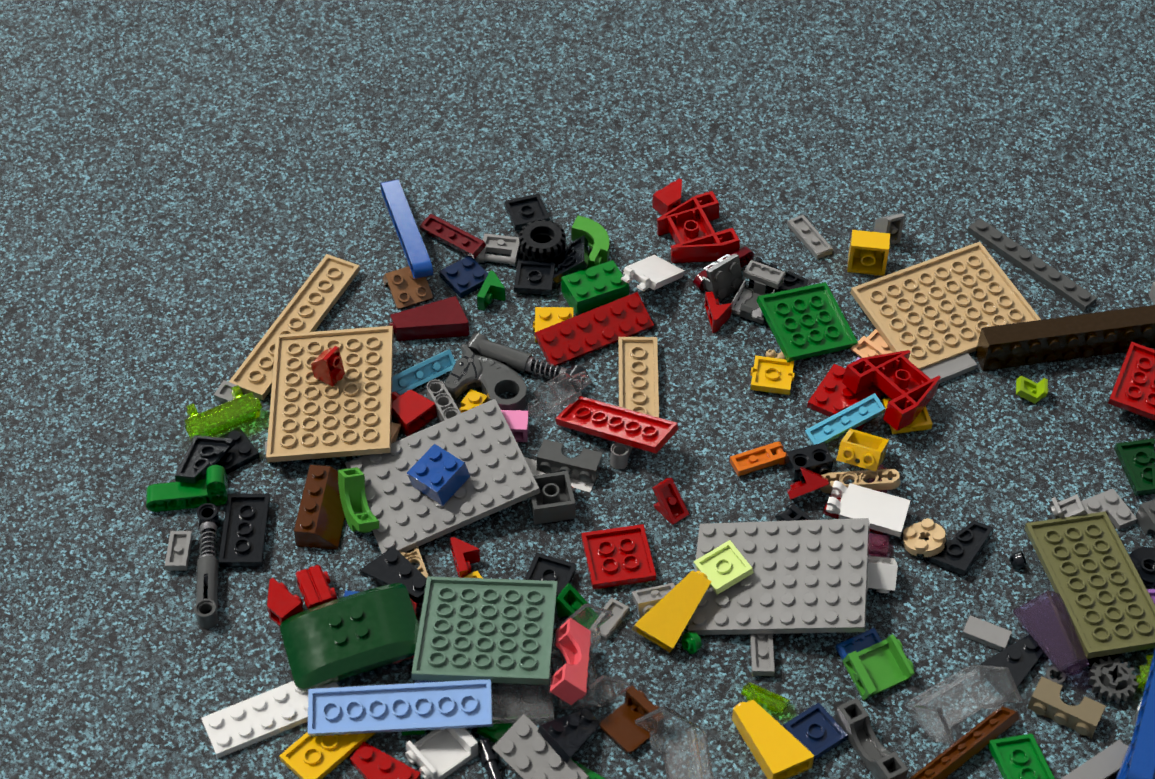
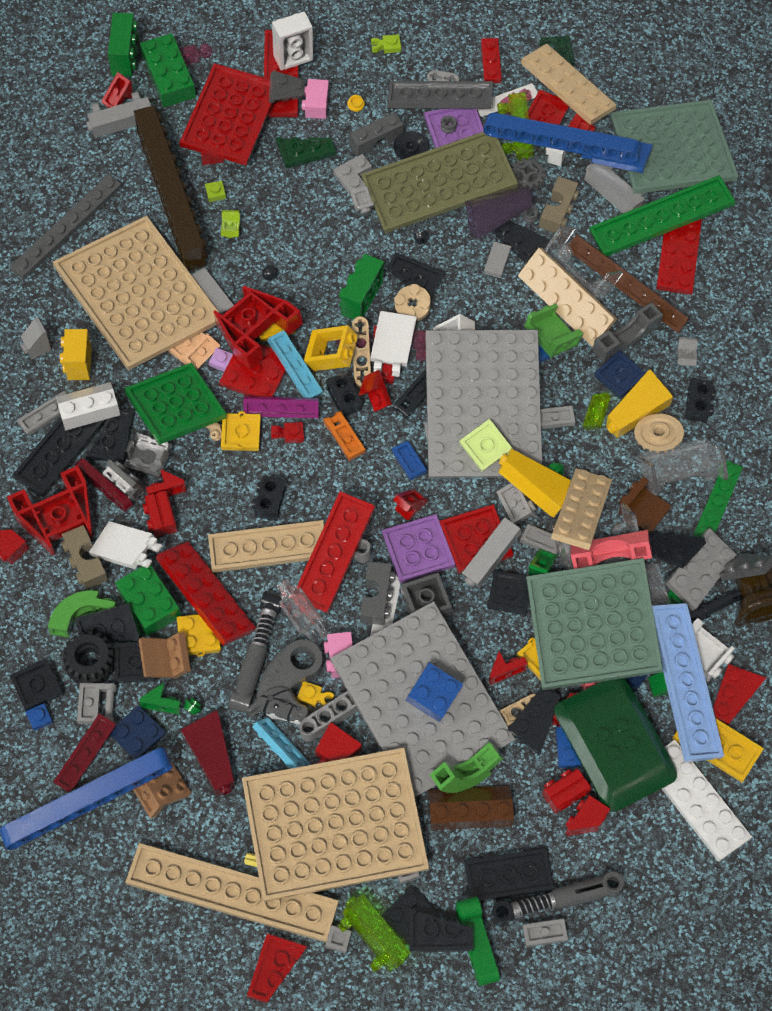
camera: 100 degrees left, 15 degrees up
(220, 347) = (273, 966): none -> red wing
(328, 366) = (316, 823): red slope -> none
(480, 313) = (192, 705): none -> green plate
(497, 214) = (39, 717): none -> blue plate
(531, 289) = (164, 656): none -> medium nougat bracket
(589, 552) = (491, 553): none -> light grey brick
(615, 502) = (418, 548): none -> medium lavender plate
(629, 643) = (581, 509): none -> tan plate
(633, 249) = (89, 571): none -> dark tan arch
(685, 305) = (160, 514): none -> red brick
(691, 389) = (272, 498): none -> black brick
(722, 510) = (409, 460): none -> blue plate
(725, 751) = (659, 432): none -> tan gear
(764, 274) = (116, 443): light grey plate -> none
(768, 417) = (291, 432): none -> red plate
(774, 243) = (54, 455): none -> black plate
(797, 409) = (282, 407): none -> magenta plate
(809, 255) = (88, 406): none -> white slope
(925, 686) = (574, 302): none -> tan plate
(941, 487) = (361, 287): none -> green brick
(969, 417) = (269, 273): none -> black hinge
(1079, 384) = (215, 191): none -> lime plate

